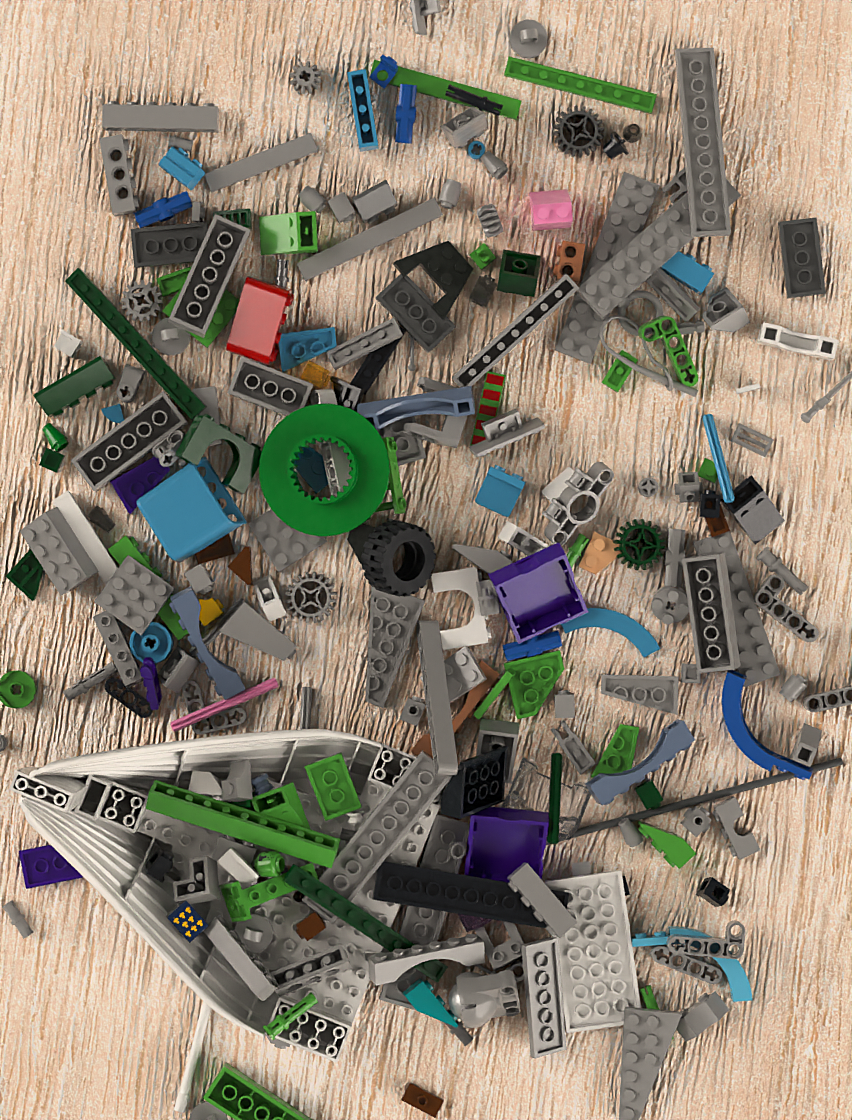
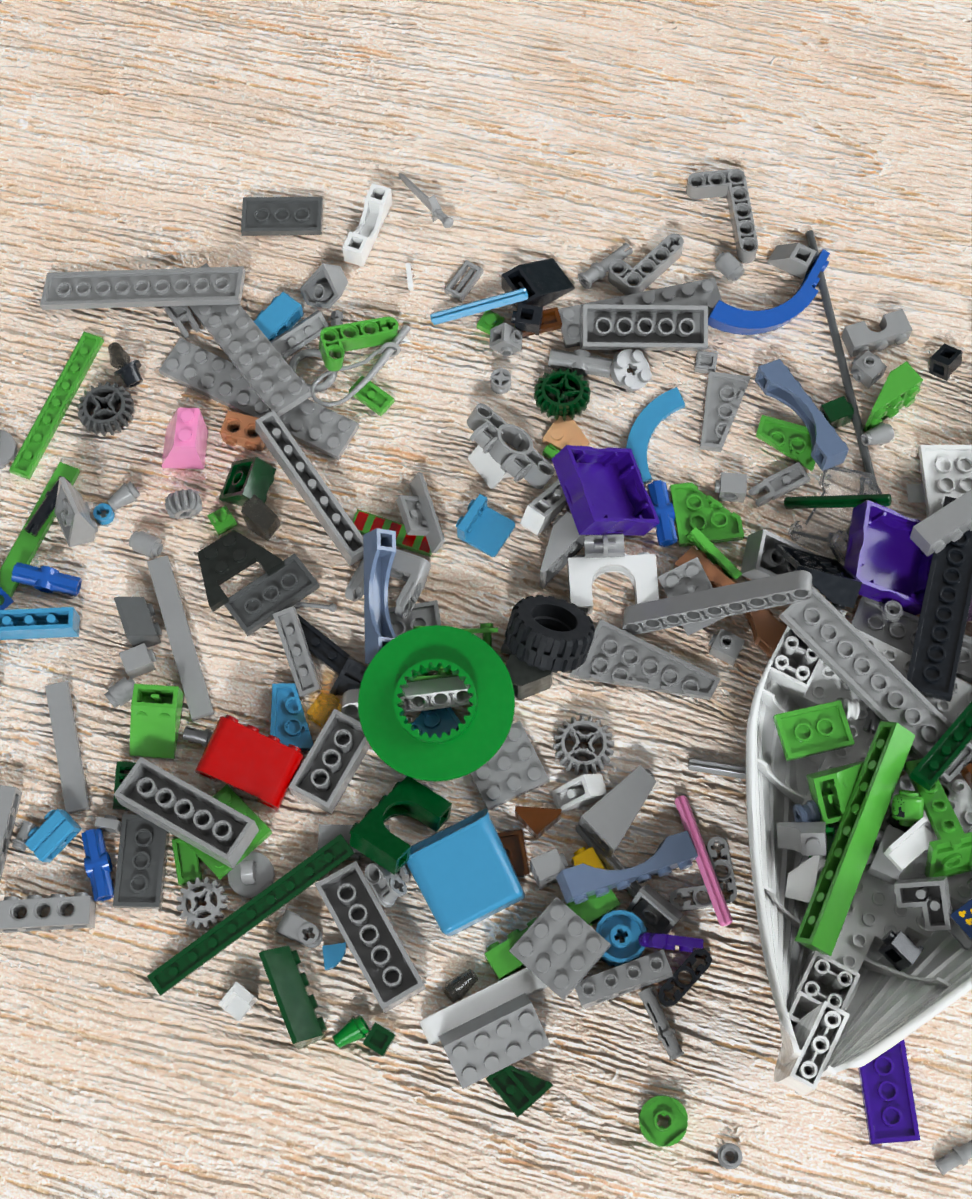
camera: 80 degrees left, 20 degrees down
(138, 482) = (420, 933): dark purple wing -> none

